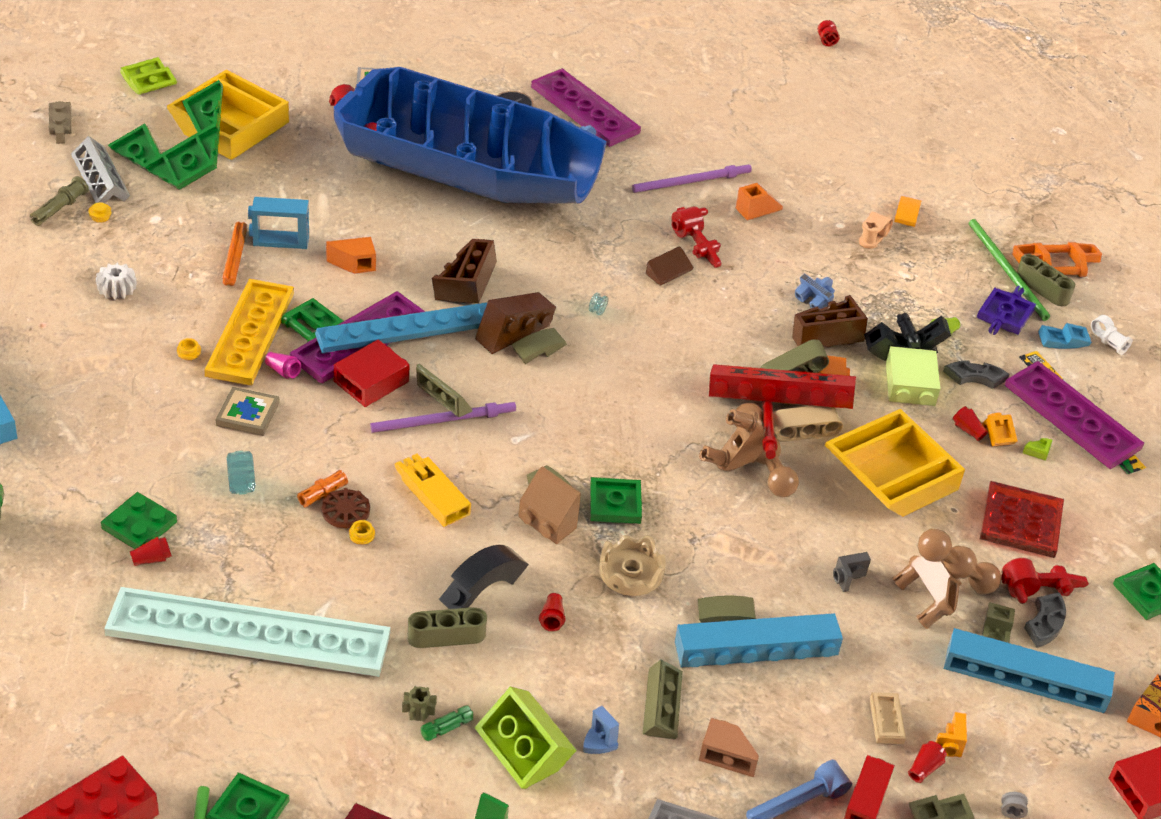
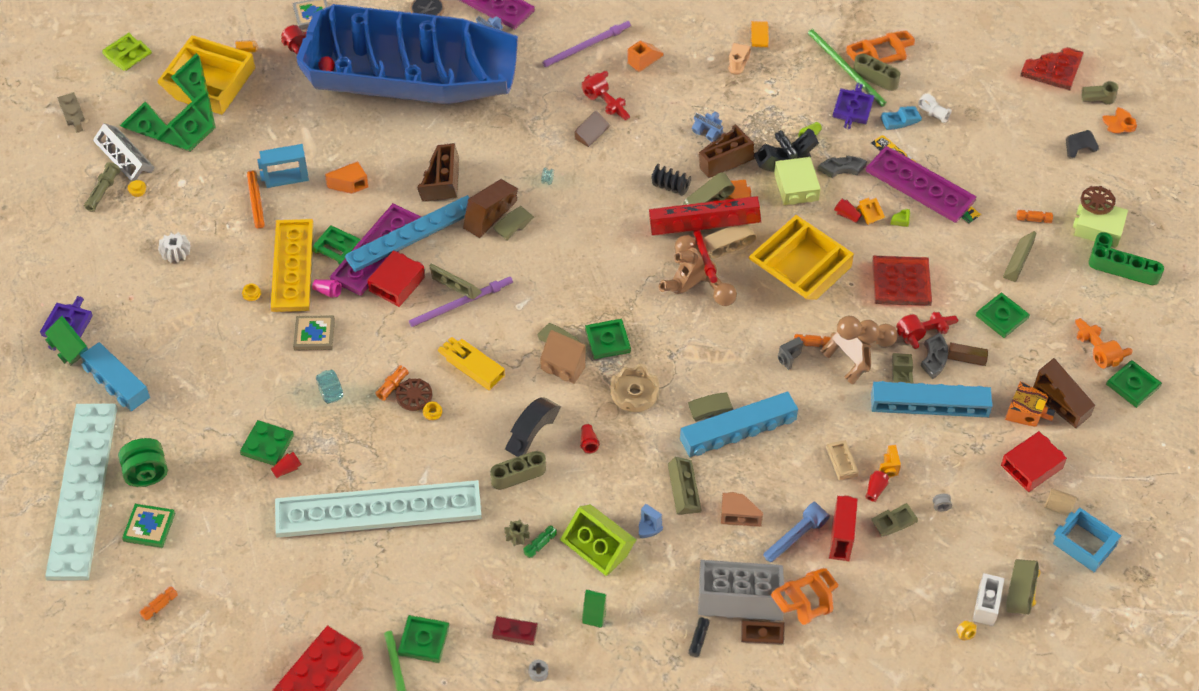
camera: 10 degrees left, 10 degrees up
(287, 93) = (247, 46): none -> light orange slope
(751, 342) = (670, 181): none -> black piece
(886, 563) = (813, 340): none -> orange axle
(1092, 627) = (968, 354): none -> reddish brown slope

